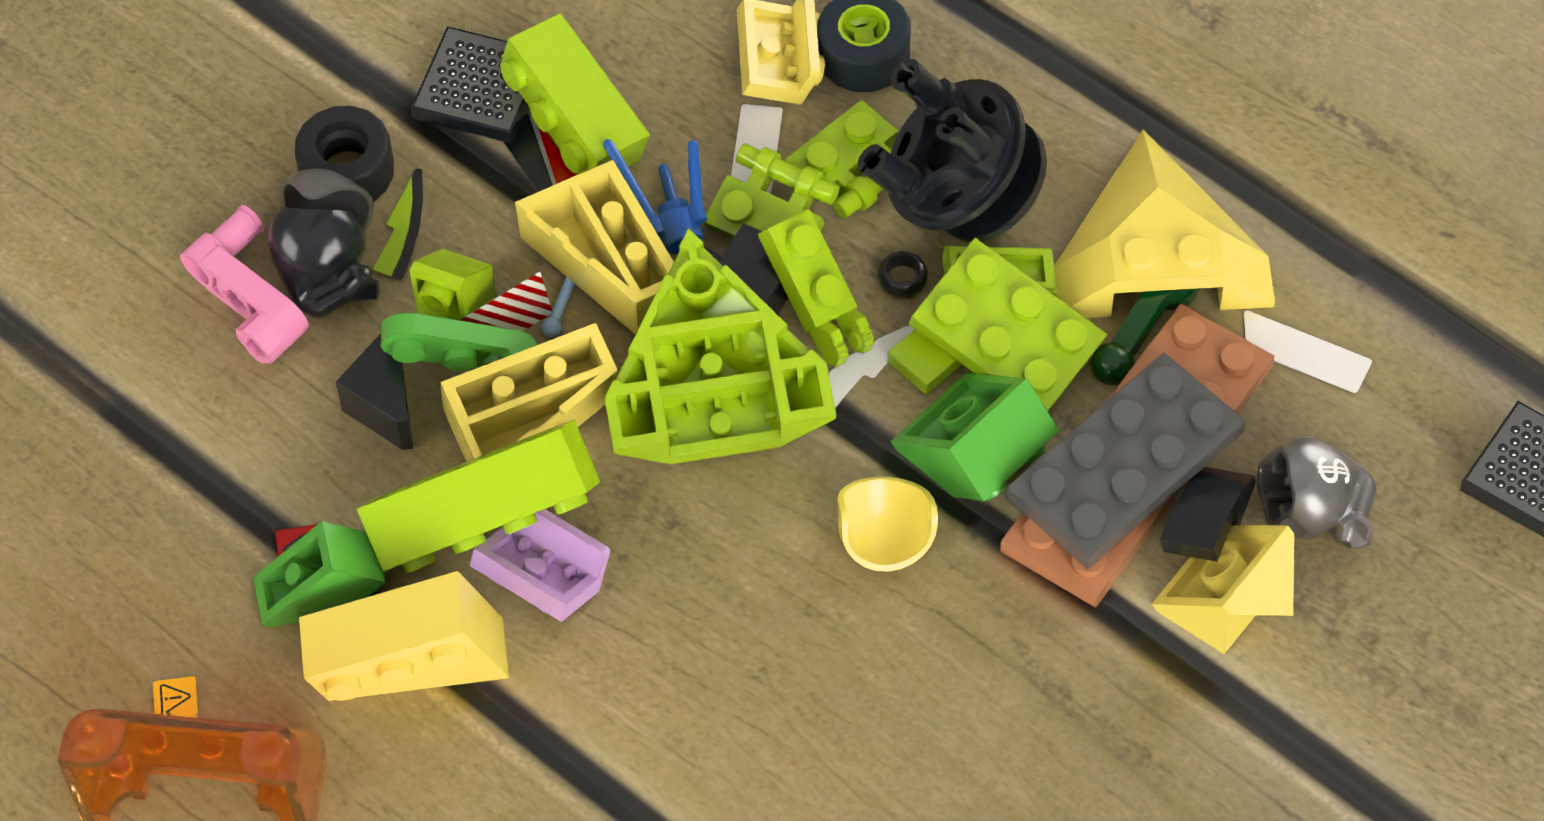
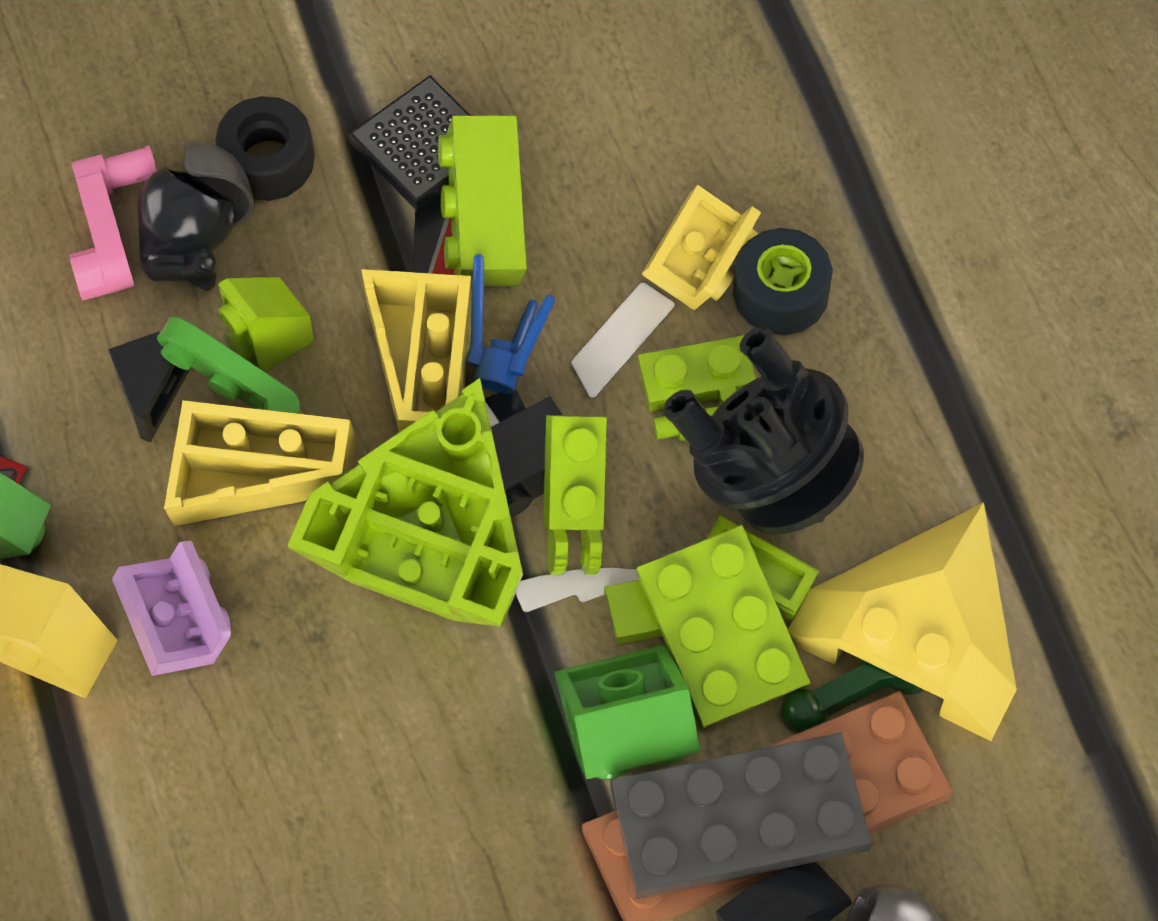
camera: 30 degrees right, 5 degrees up
(406, 224) = (282, 236): sticker -> none
(480, 496) = (145, 525): lime brick -> none
(515, 308) = (303, 366): sticker -> none
(552, 326) = (338, 397): light blue hinge -> none
(752, 205) = (578, 392): lime plate -> none
(886, 522) = (486, 745): light yellow helmet -> none
(902, 289) = (671, 536): black piece -> none
(1307, 352) = (990, 803): white sticker -> none

